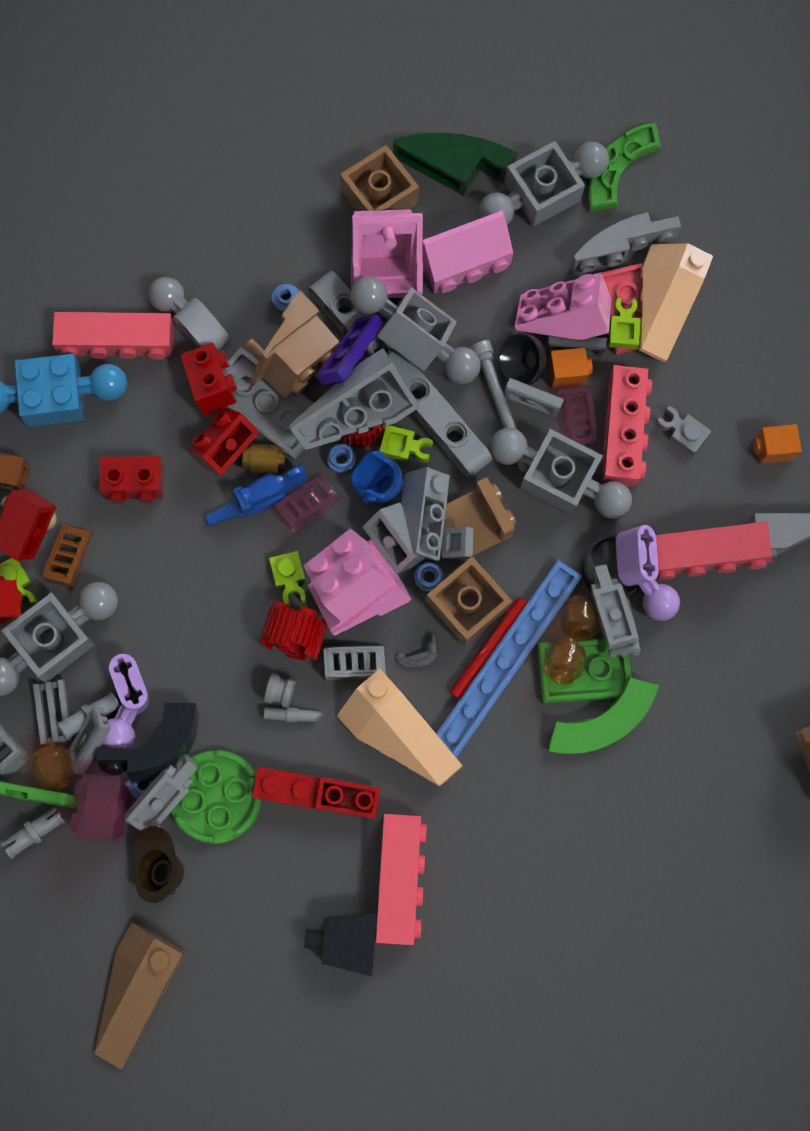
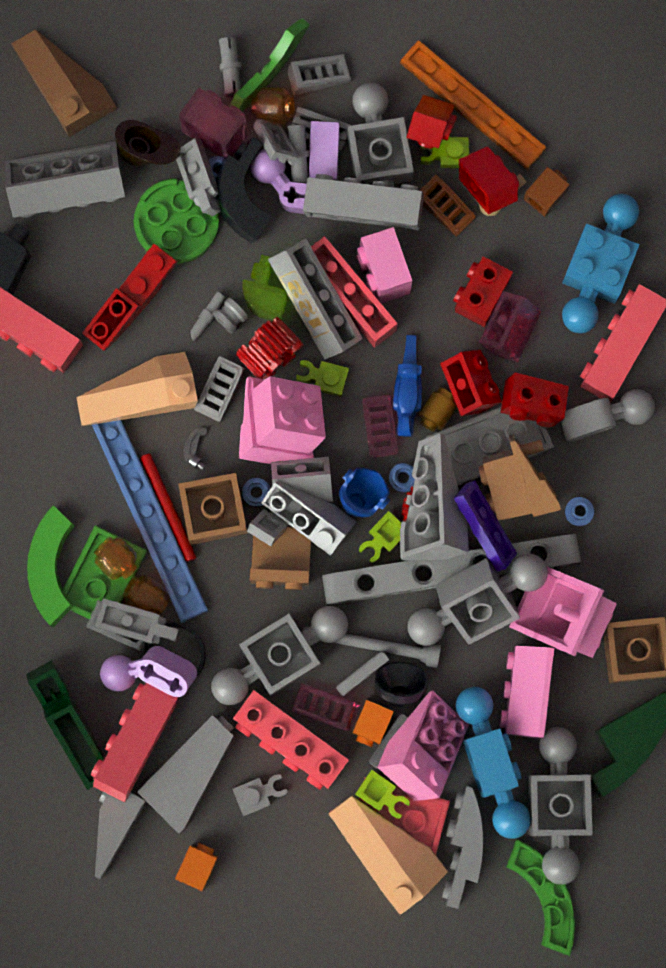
camera: 125 degrees right, 5 degrees up
(71, 693) = (324, 148): none -> lavender tile
(107, 617) = (363, 202): none -> light grey brick
(152, 435) = (510, 326): none -> clear pink brick
(156, 571) = (385, 265): none -> bright pink brick
(198, 592) = (358, 300): none -> coral brick
(223, 616) = (315, 299): none -> light grey brick
(233, 927) = (64, 179): none -> light grey slope
(247, 673) = (262, 298): none -> clear neon green brick
(543, 251) = (491, 762): none -> dark azure brick
(706, 495) = (185, 777): none -> light grey slope
(730, 622) = (66, 720): none -> dark green slope

